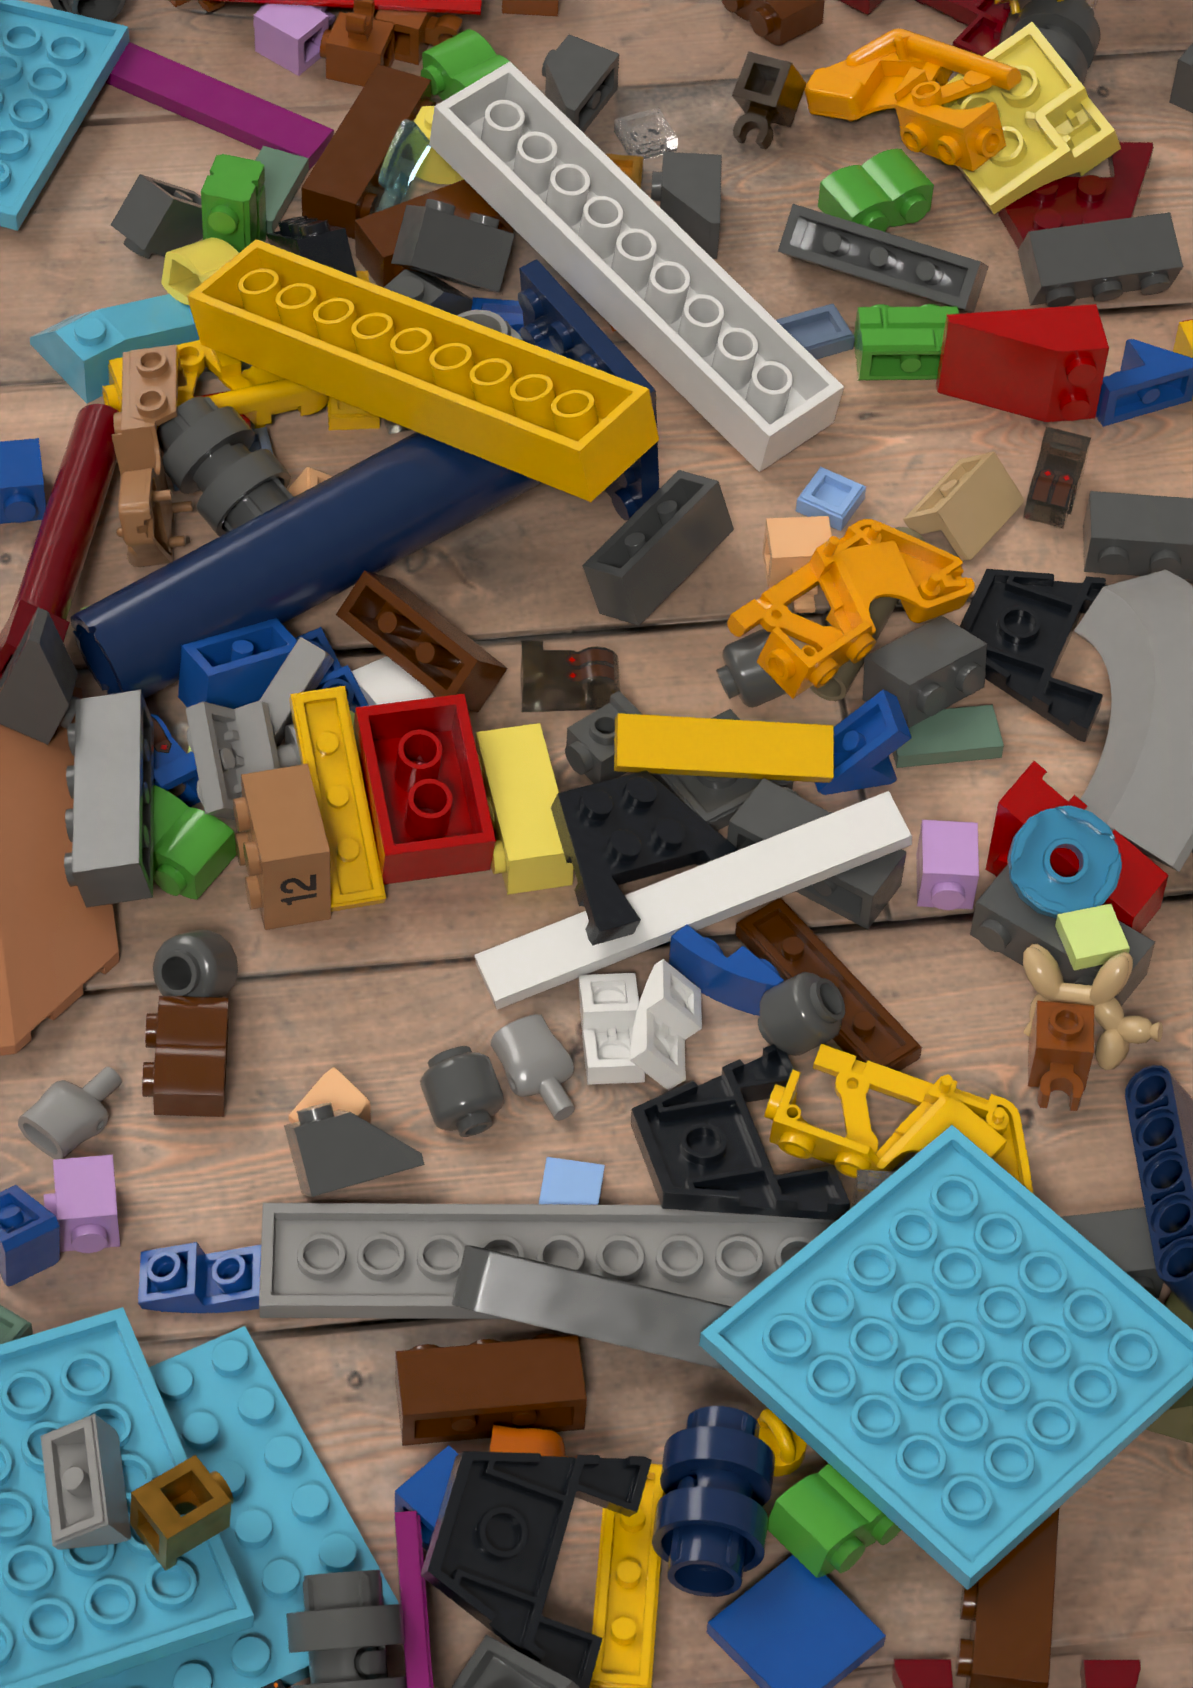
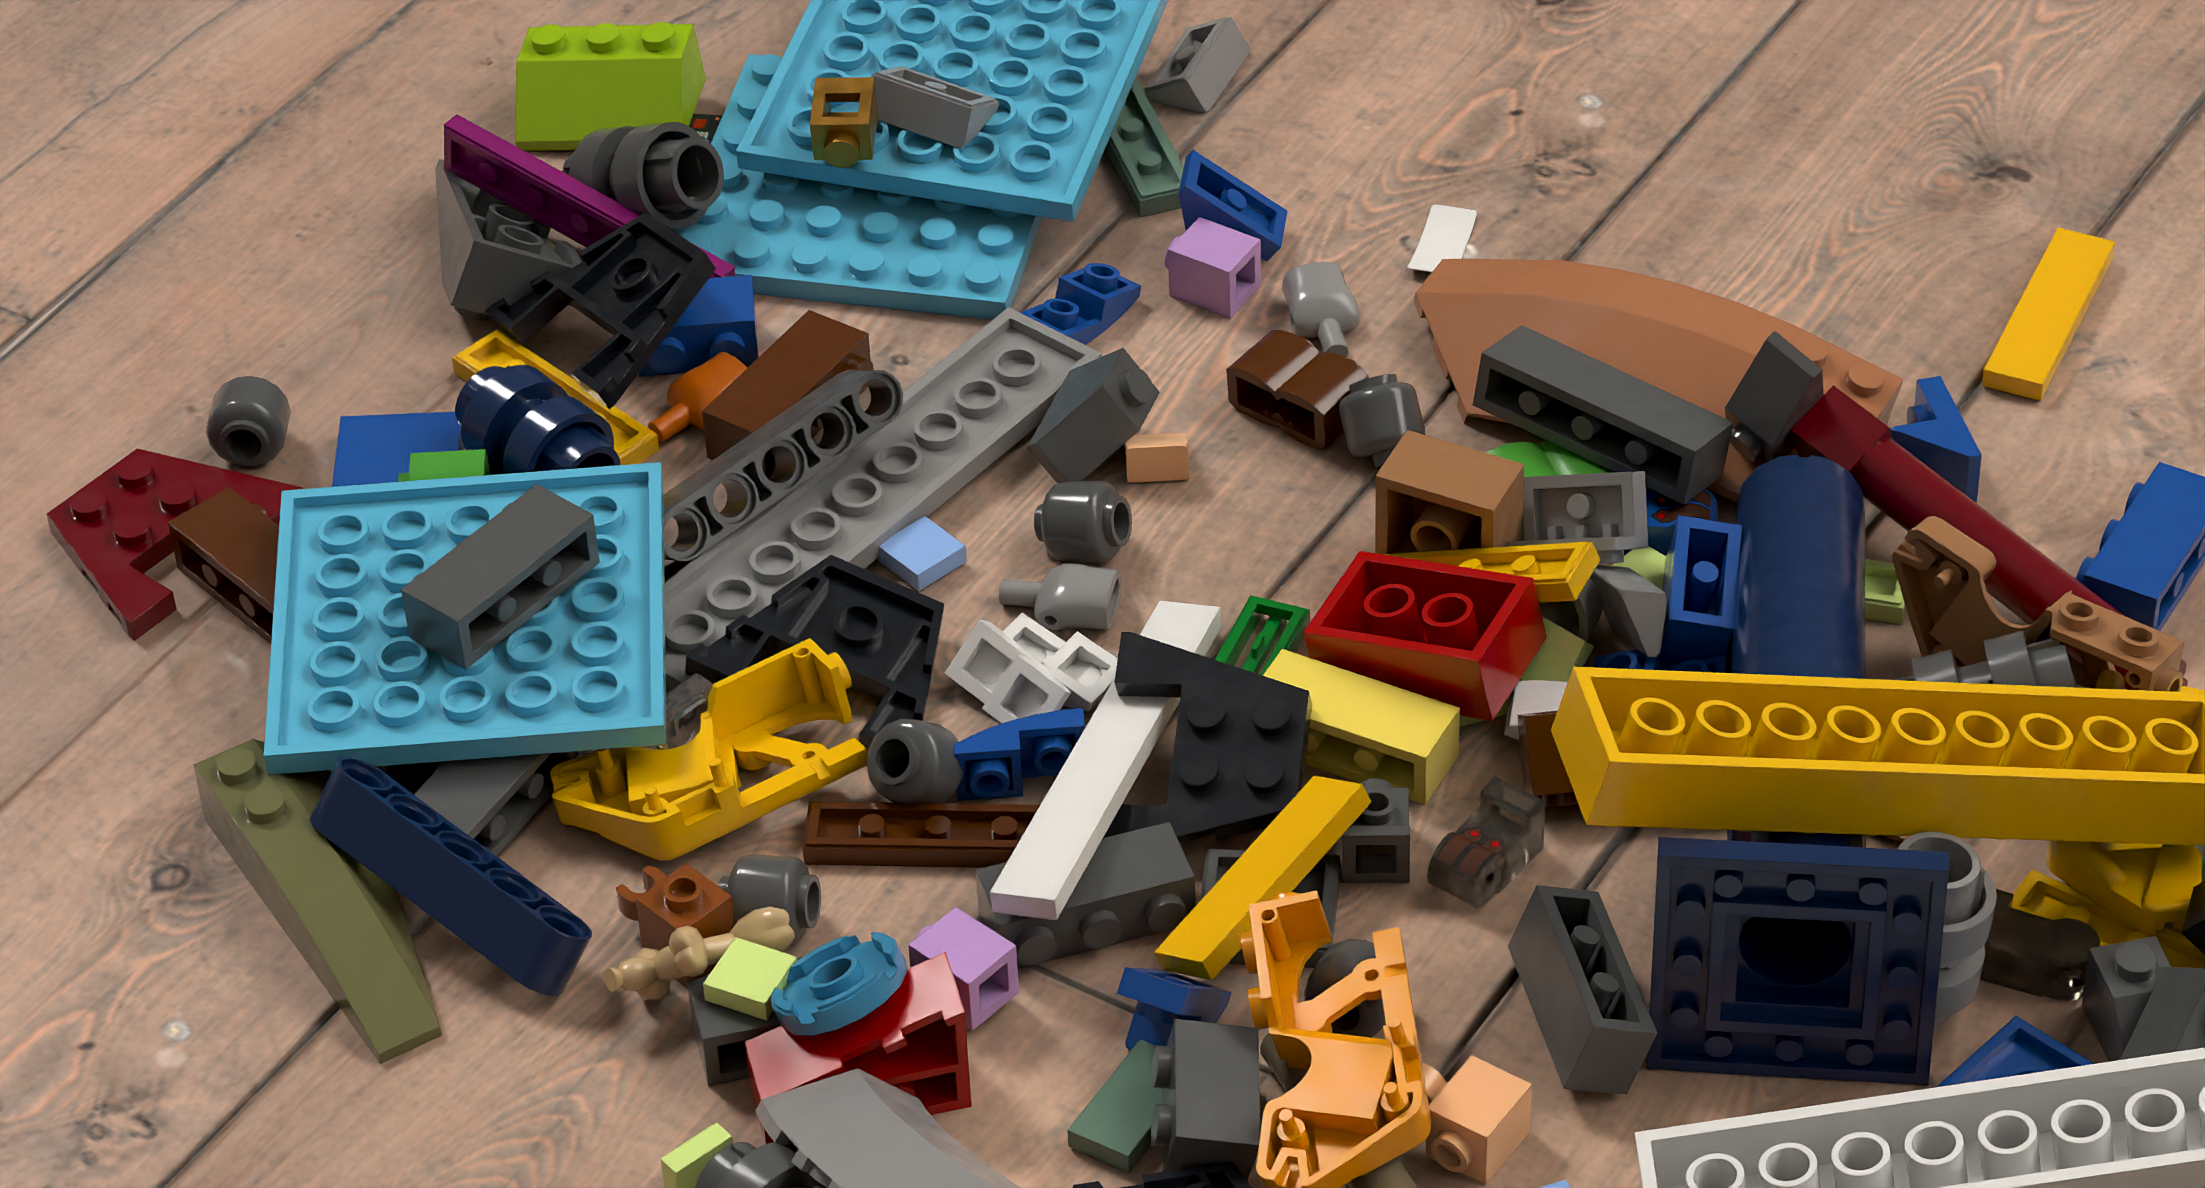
camera: 135 degrees right, 10 degrees down
(487, 929) = (1245, 624): none -> green tile
(937, 1306) = (500, 576): none -> dark grey brick
(993, 1016) = (775, 883): none -> dark grey head

